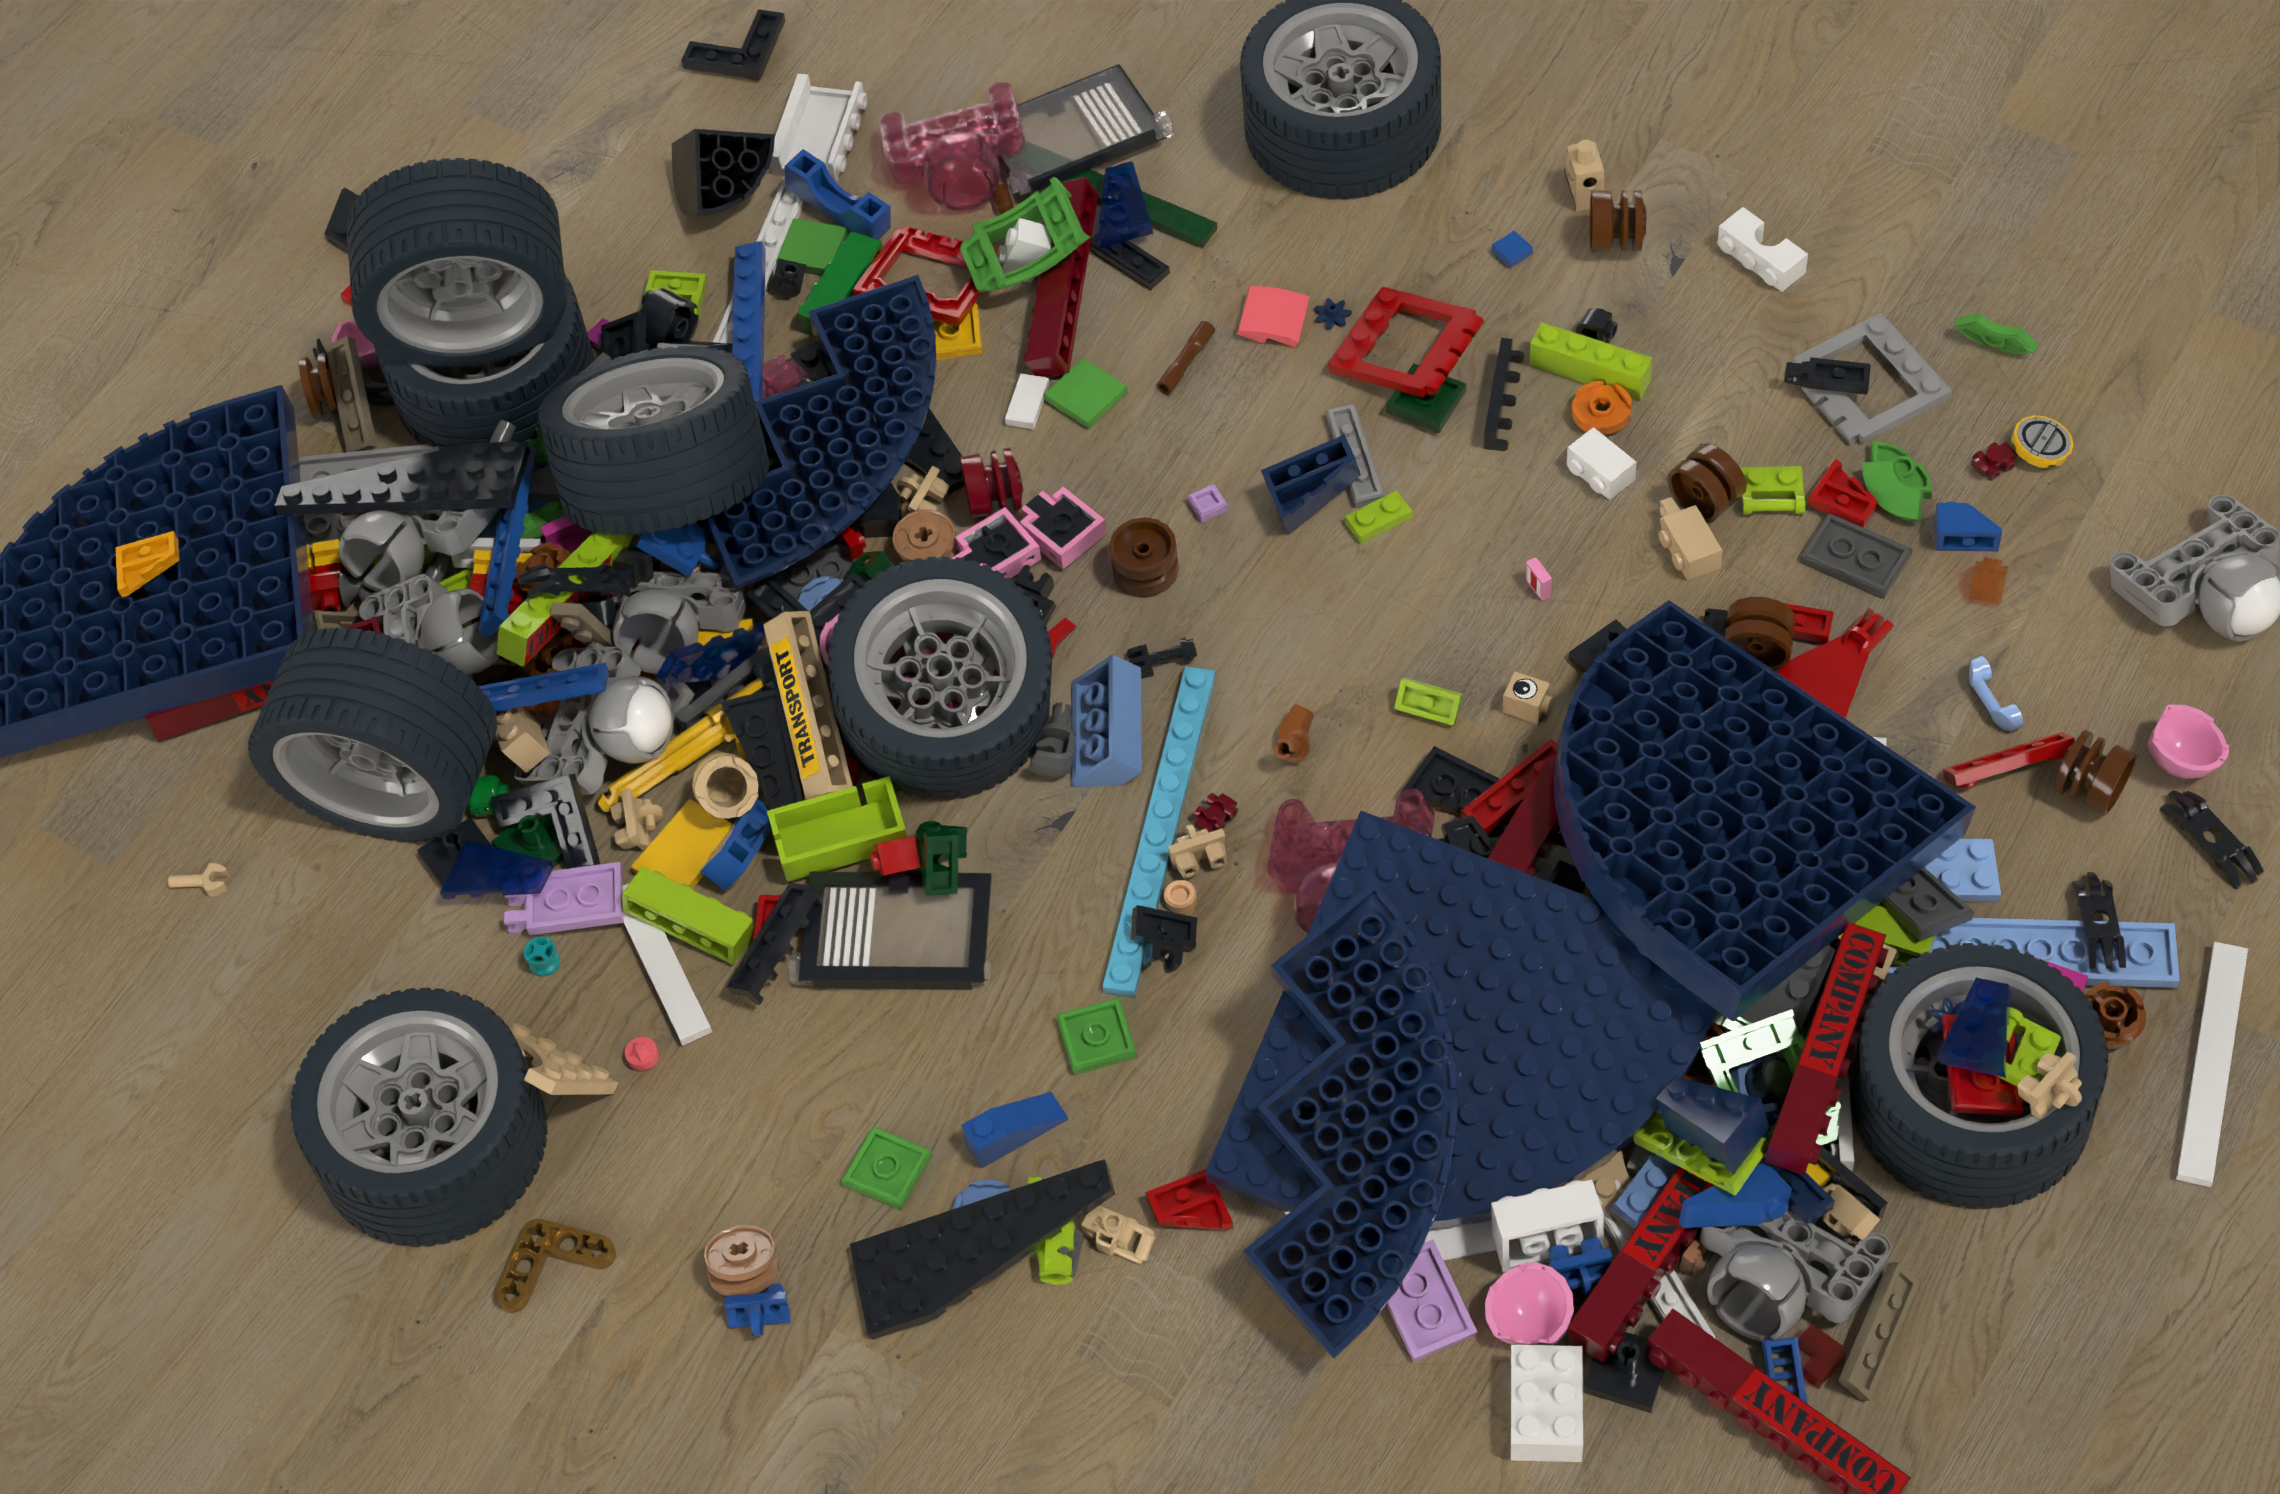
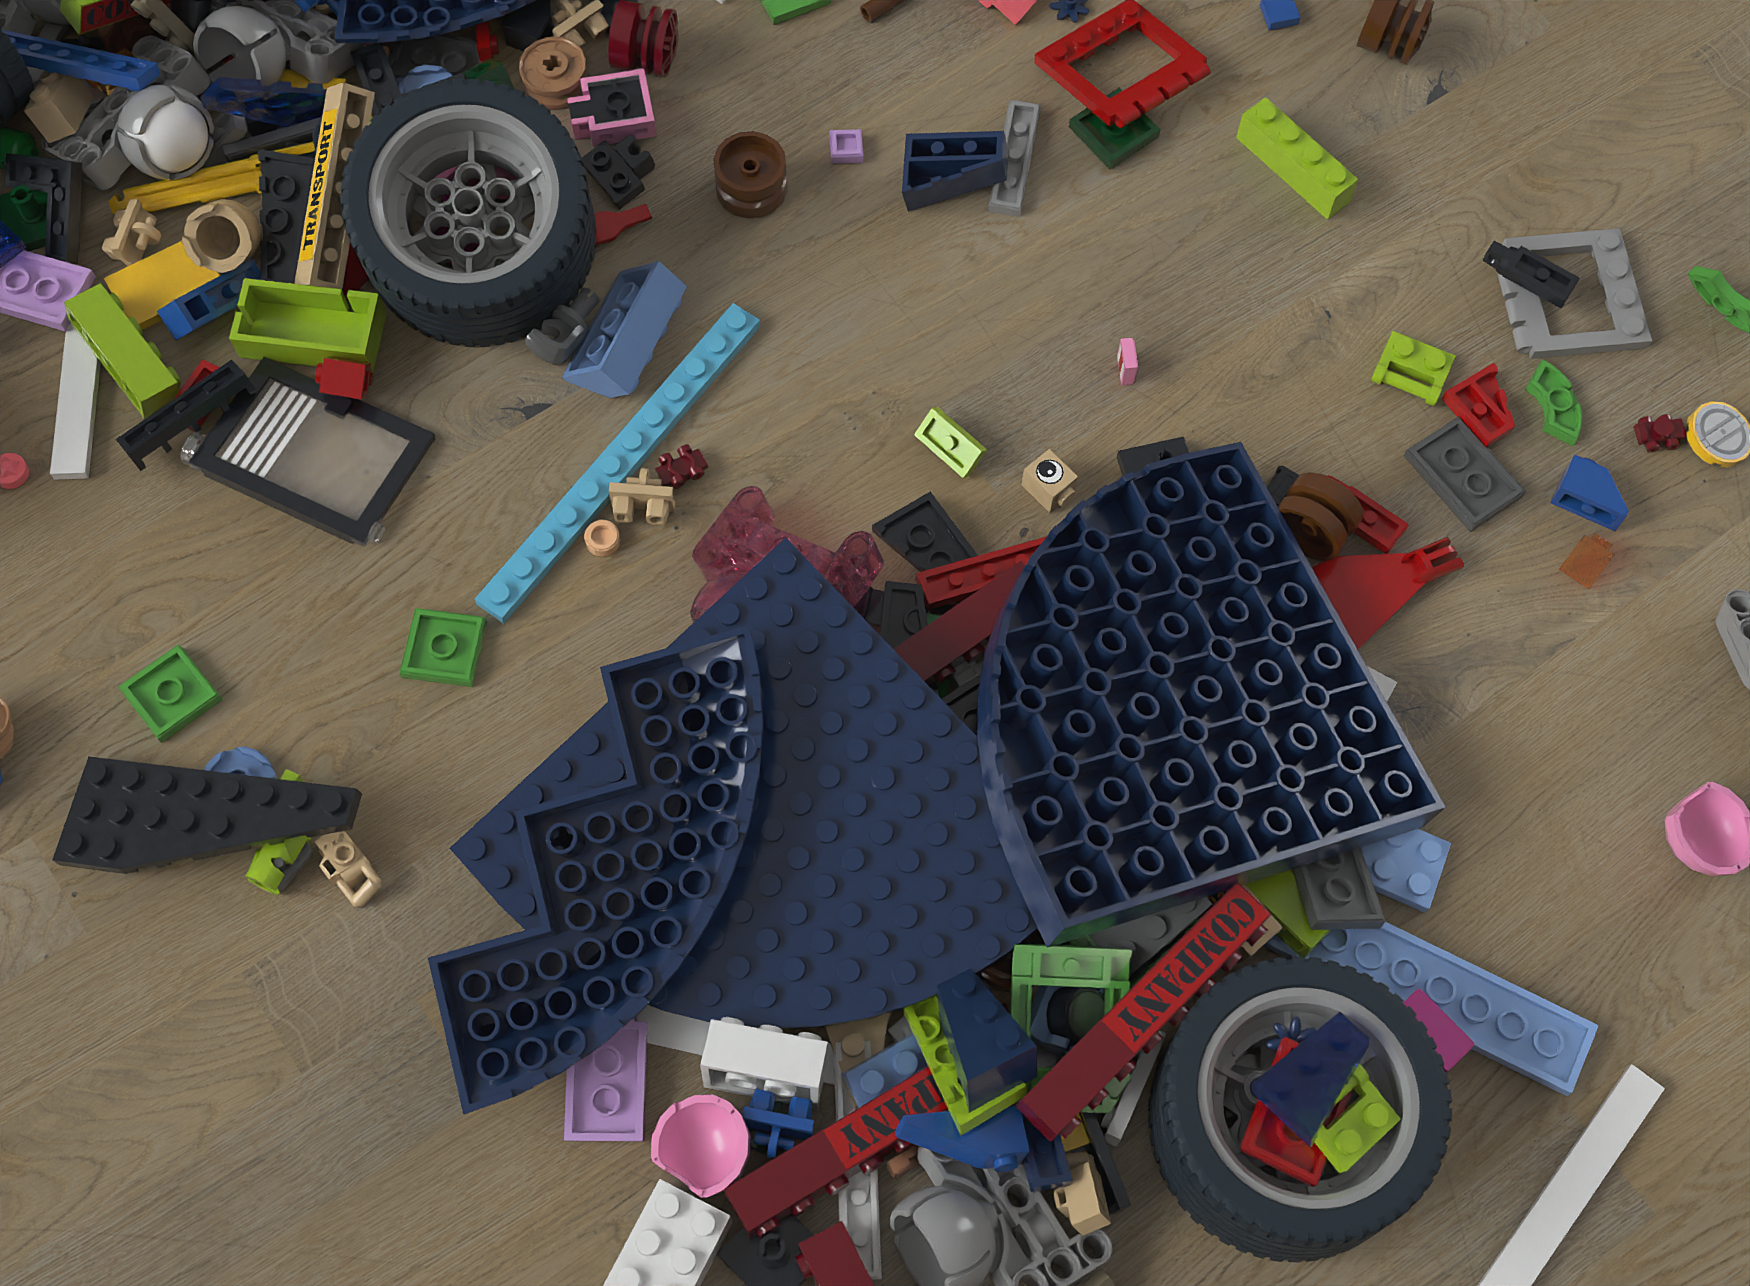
camera: 15 degrees right, 10 degrees up
(934, 845) = (383, 386): dark green tile -> none
(1011, 1126) = (307, 705): blue slope -> none
(1062, 525) = (690, 110): piece -> none
(1142, 658) = (698, 279): black hinge -> none
(1164, 935) = (559, 572): black plate -> none
(1189, 1204) = (431, 868): red wing -> none
(1294, 735) = (798, 421): dark orange arm -> none
(1378, 517) = (1004, 230): lime plate -> none
(1499, 397) = (1187, 155): black hinge -> none
(1596, 393) = (1282, 227): orange plate -> none
(1597, 325) = (1322, 124): black plate -> none
(1601, 463) = (1252, 268): white brick -> none
(1689, 540) = (1300, 385): tan hinge -> none
(1708, 481) = (1347, 333): reddish brown wheel -> none
(1776, 264) = (1536, 134): white arch -> none
(1891, 494) = (1533, 421): bright green tile -> none
(1967, 773) = (1557, 768): red plate -> none
(2008, 717) = (1533, 716): light blue bar -> none
(2056, 1088) = (1362, 1184): tan hips -> none
(2092, 770) = (1595, 820): reddish brown wheel -> none
(2100, 933) = (1514, 1003): black piece -> none
(2119, 1012) = (1482, 1101): dark orange cone -> none
(2224, 851) = (1690, 967): black piece -> none

